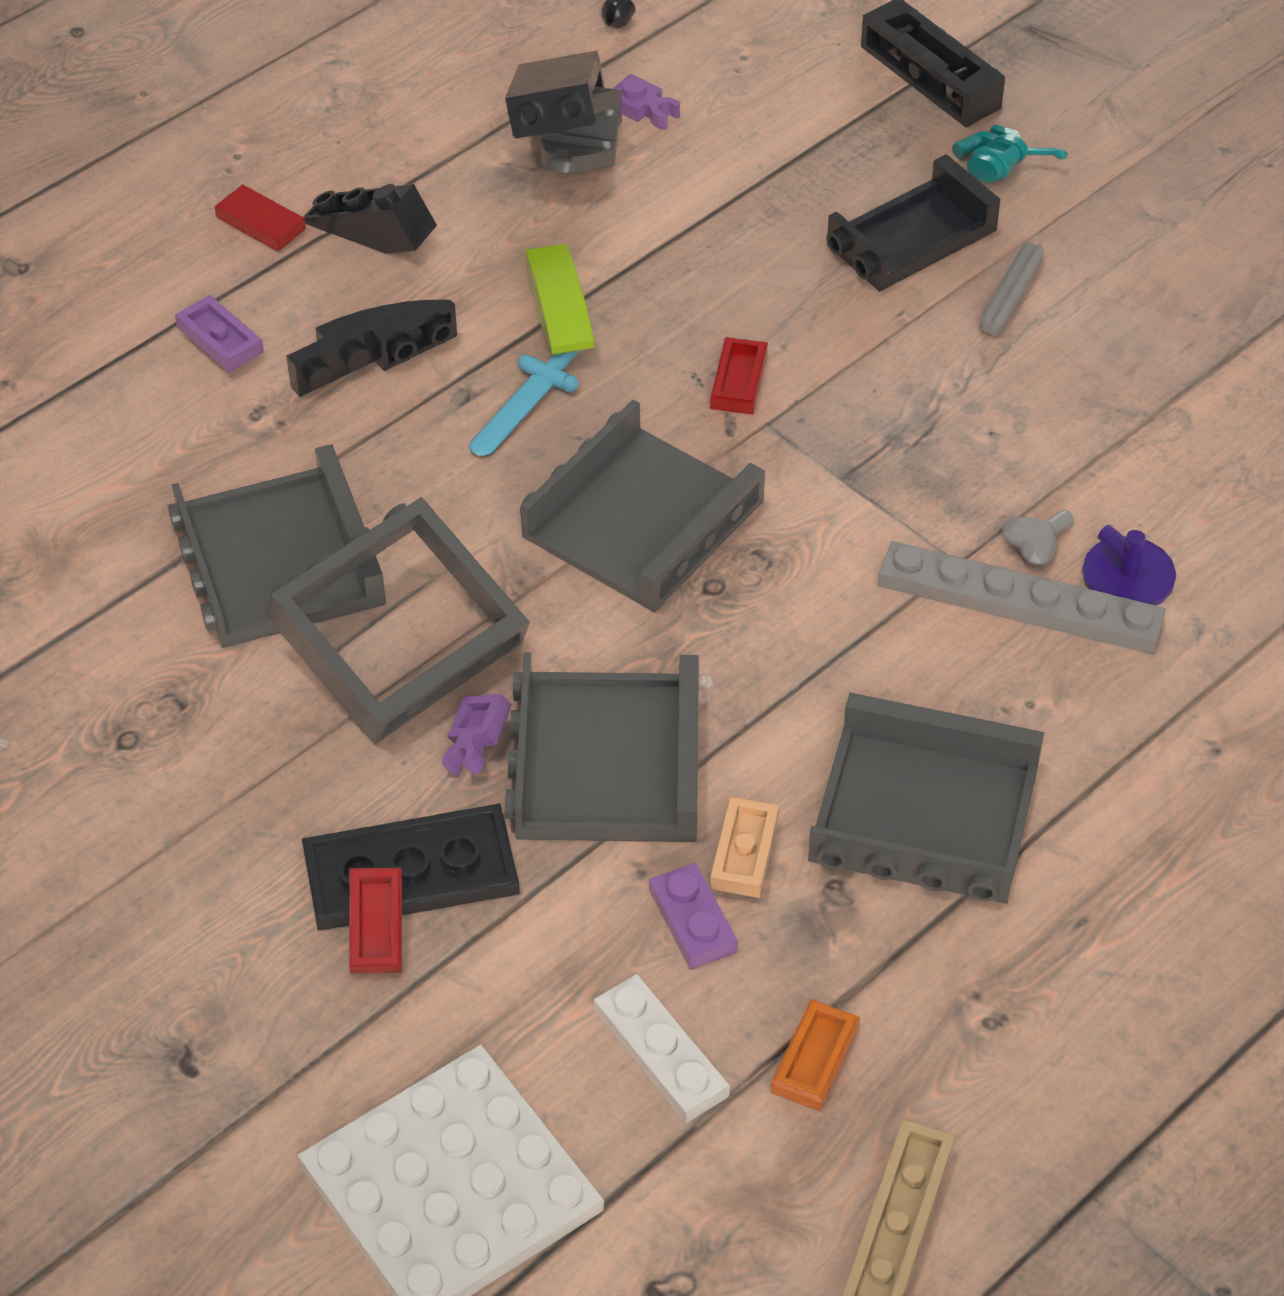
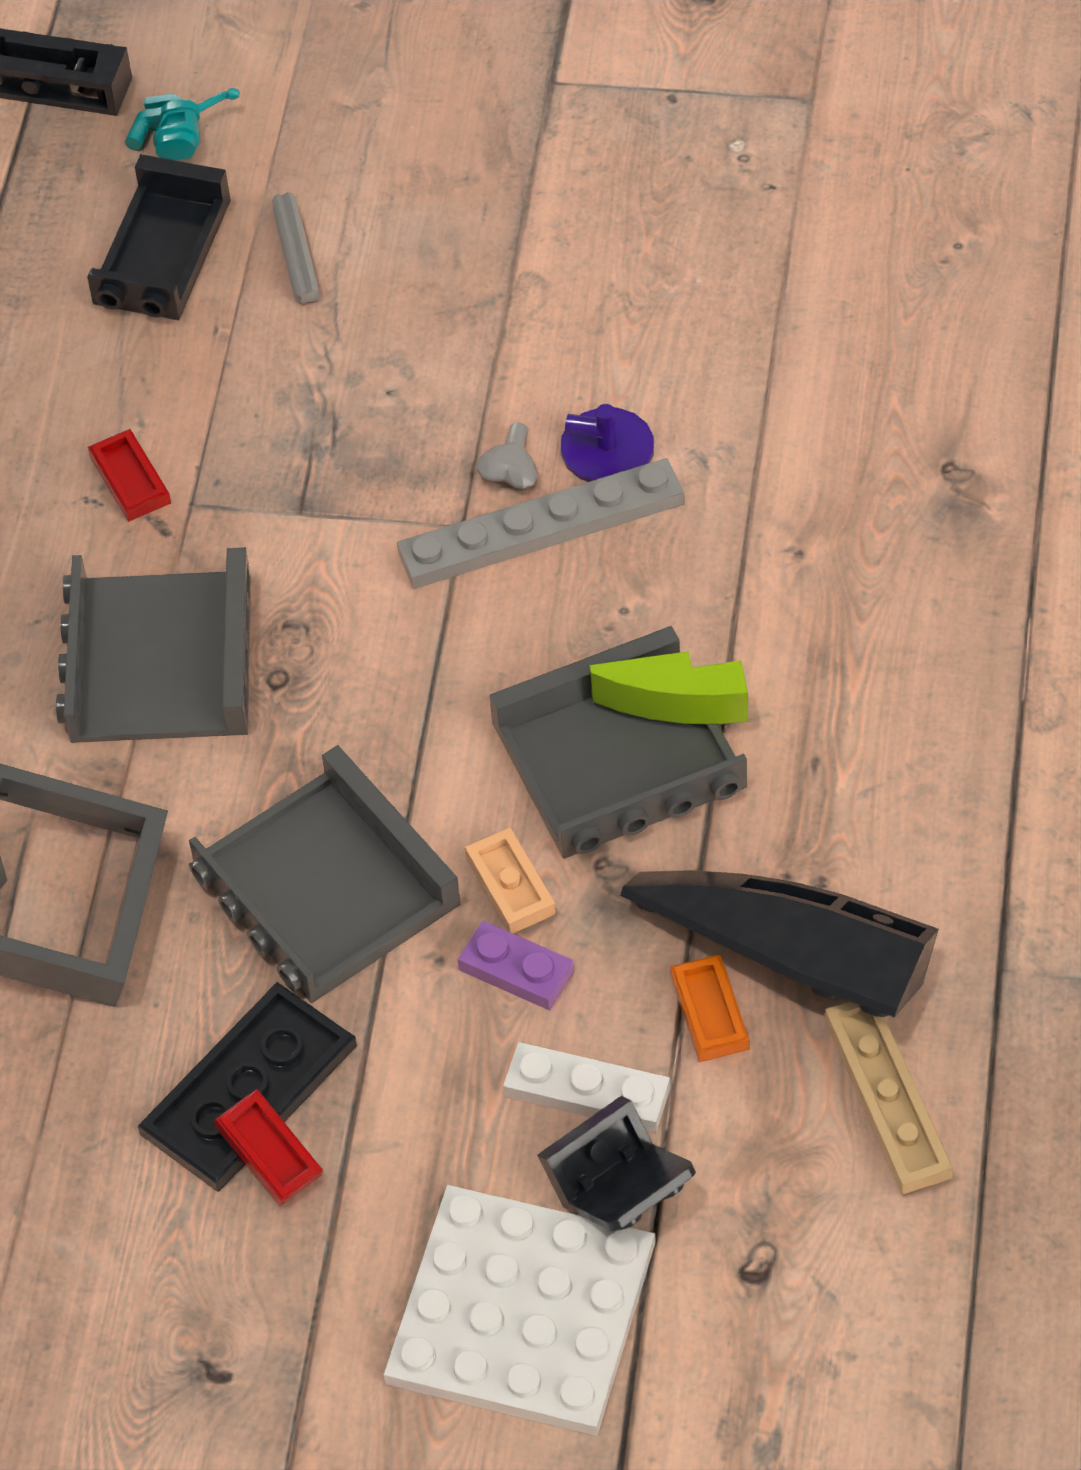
camera: 35 degrees left, 5 degrees up
(474, 727) = (196, 933): medium lavender plate -> none
(613, 1121) = (612, 1168): none -> black bracket
(935, 1046) = (798, 931): none -> black wedge
(1004, 783) = (672, 689): none -> lime slope

